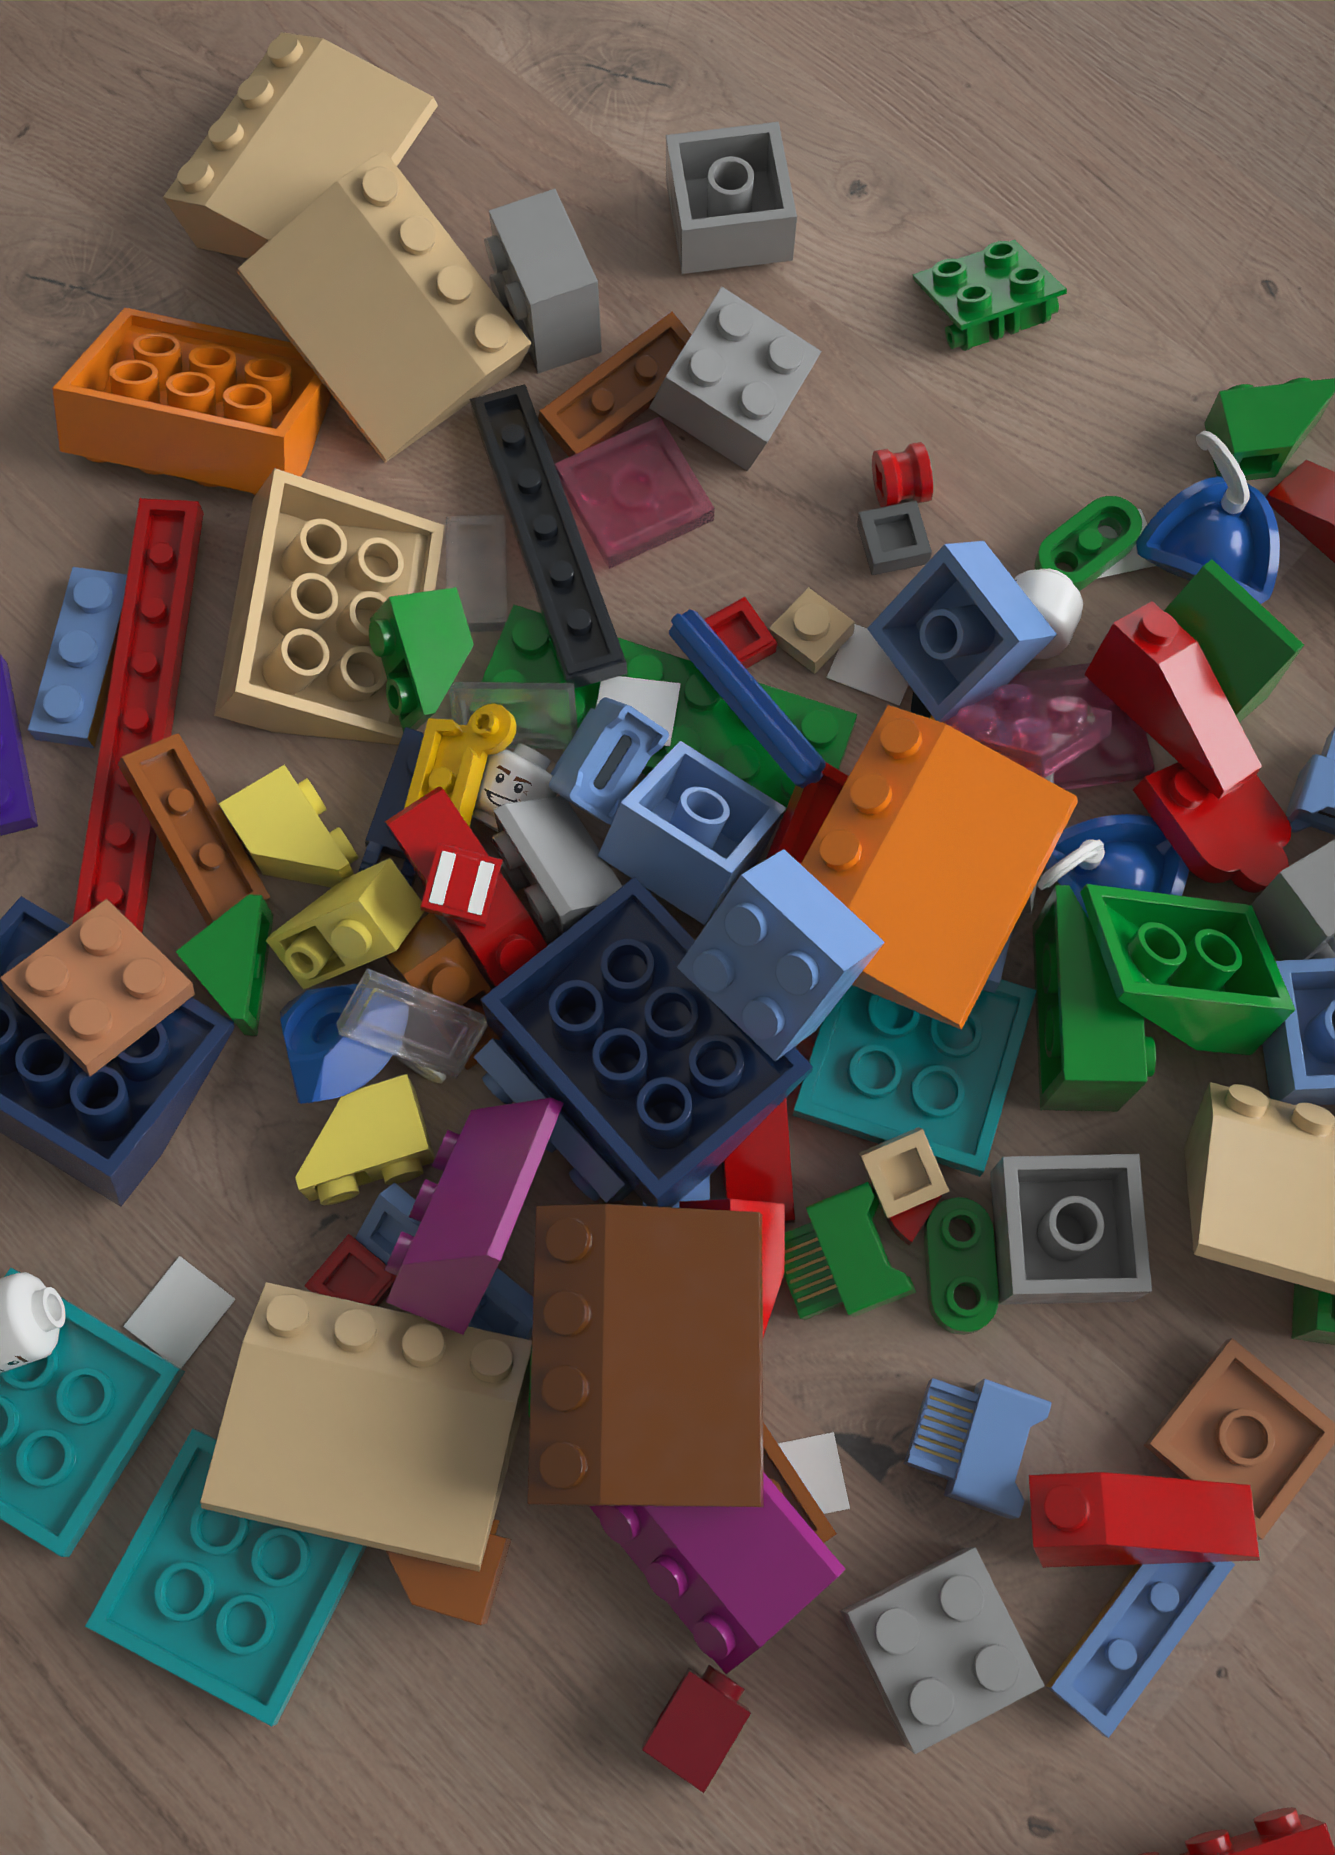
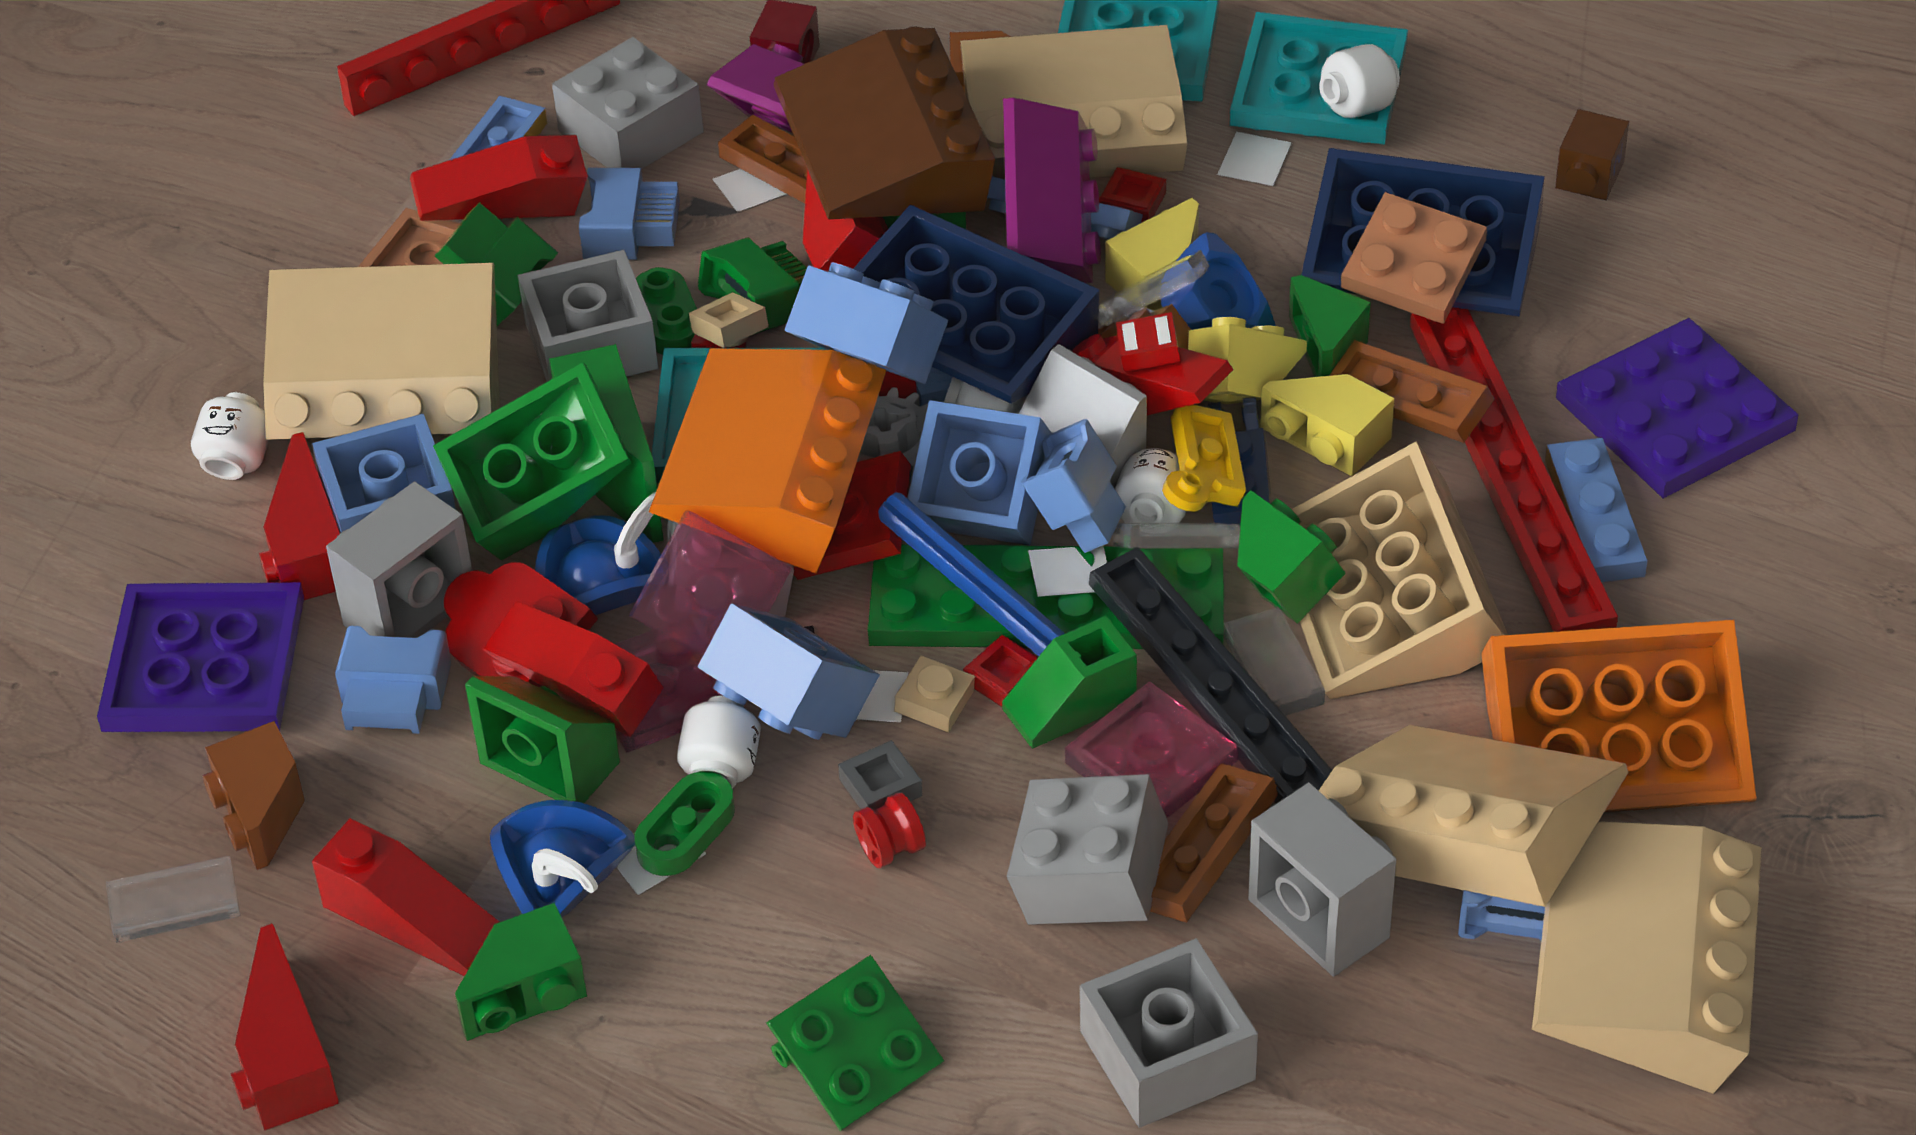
camera: 165 degrees right, 25 degrees down
(682, 567) = (1073, 683): none -> green slope
(1166, 1374) = (511, 248): none -> green piece

